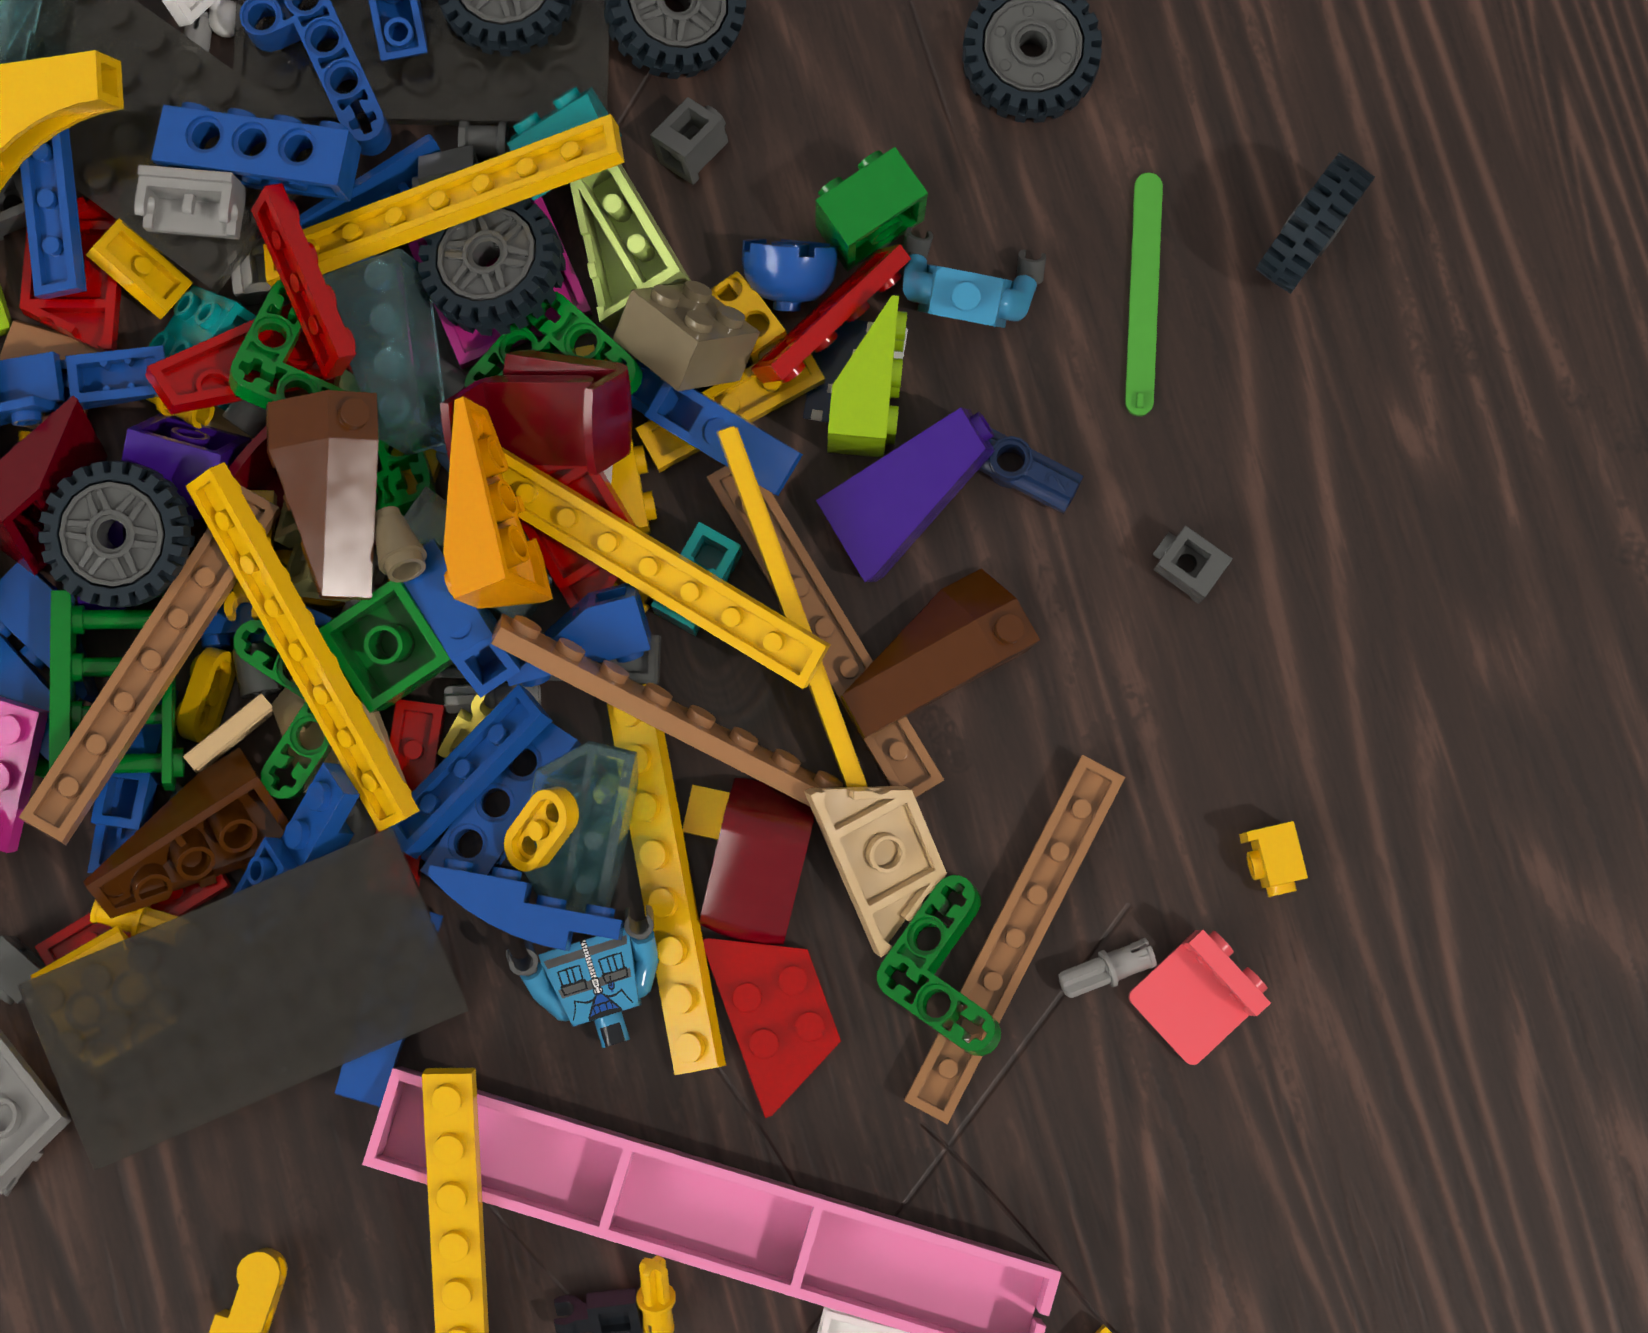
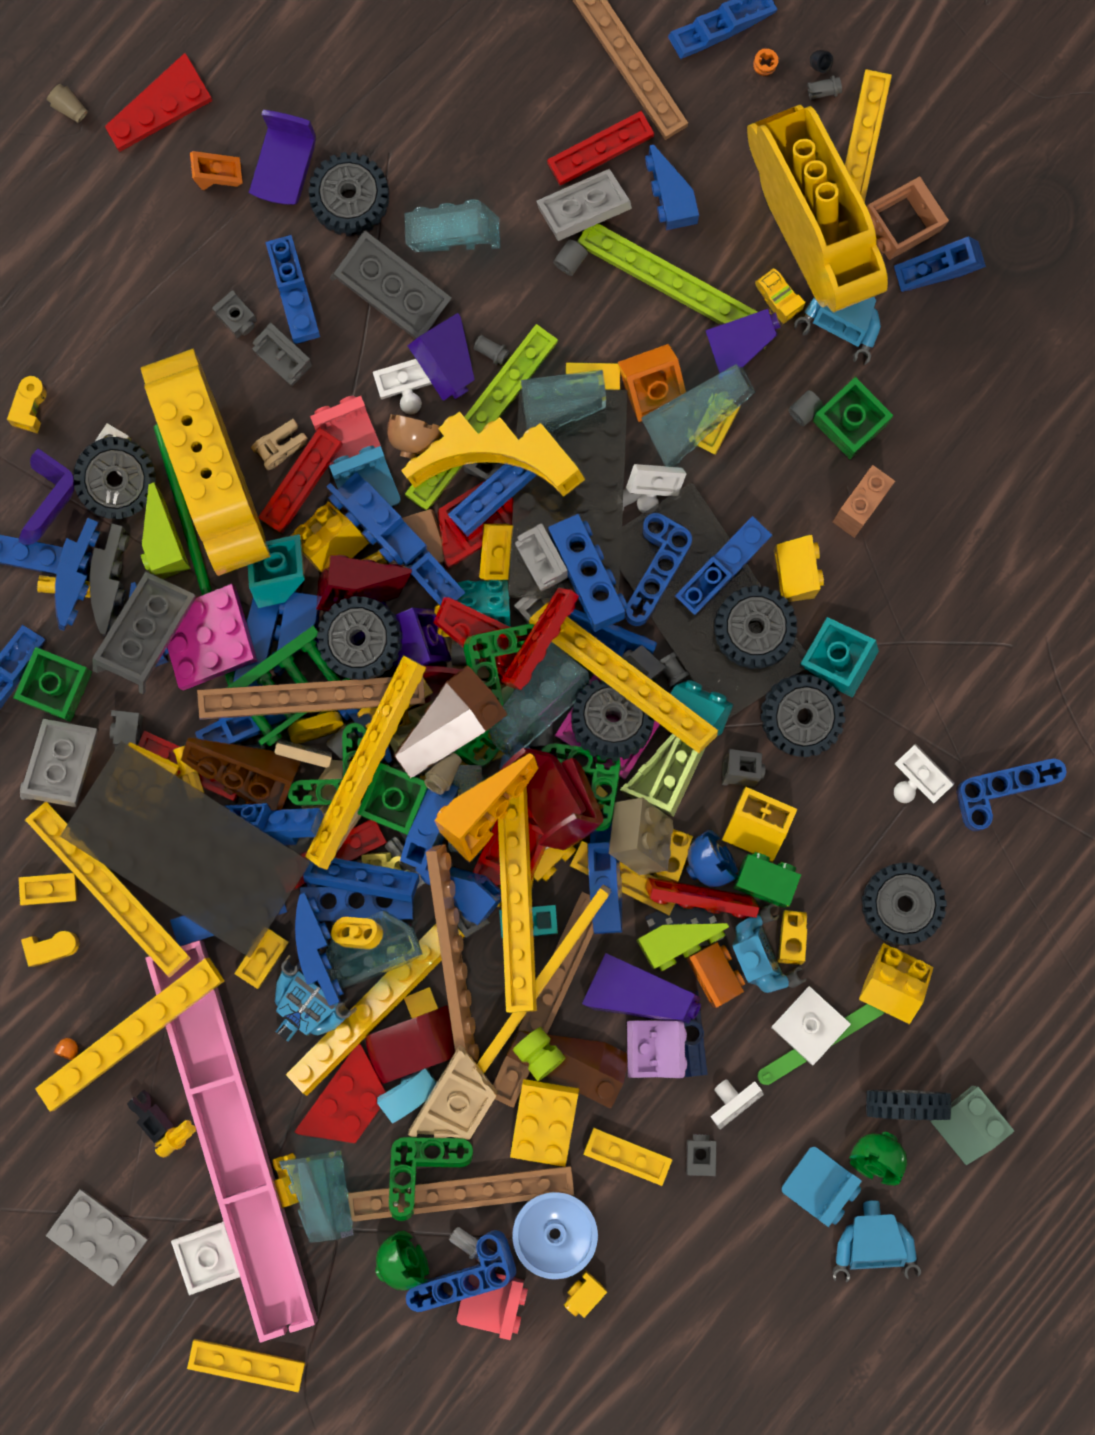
camera: 55 degrees right, 0 degrees up
(165, 1244) = (48, 889): none -> yellow plate
(230, 1153) = (110, 892): none -> yellow plate
(492, 1010) = (258, 966): none -> yellow plate
(781, 165) = (759, 823): none -> yellow slope
(824, 918) = (408, 1095): none -> medium azure slope
(835, 1176) = (282, 1184): none -> yellow plate
(882, 1137) = (322, 1195): none -> clear light blue wedge
(894, 685) = (539, 1053): none -> lime wheel
(952, 371) = (716, 975): none -> orange slope
(974, 231) = (793, 938): none -> yellow leg
(995, 748) = (544, 1122): none -> yellow plate
(1000, 520) = (656, 1049): none -> lavender bracket
(1055, 1089) = (401, 1263): none -> green cylinder
(1112, 291) = (810, 1025): none -> white plate
(1121, 666) = (627, 1156): none -> yellow plate
(1134, 1018) = (460, 1279): none -> blue beam
(1135, 134) = (896, 983): none -> yellow slope
(1145, 466) = (734, 1102): none -> white tile
(1198, 833) = (558, 1256): none -> light blue dish
(1346, 425) = (821, 1186): none -> dark azure bracket
(1360, 316) = (880, 1156): none -> green cylinder
(1409, 160) = (973, 1126): none -> sand green slope
(1471, 405) = (875, 1243): none -> dark azure torso

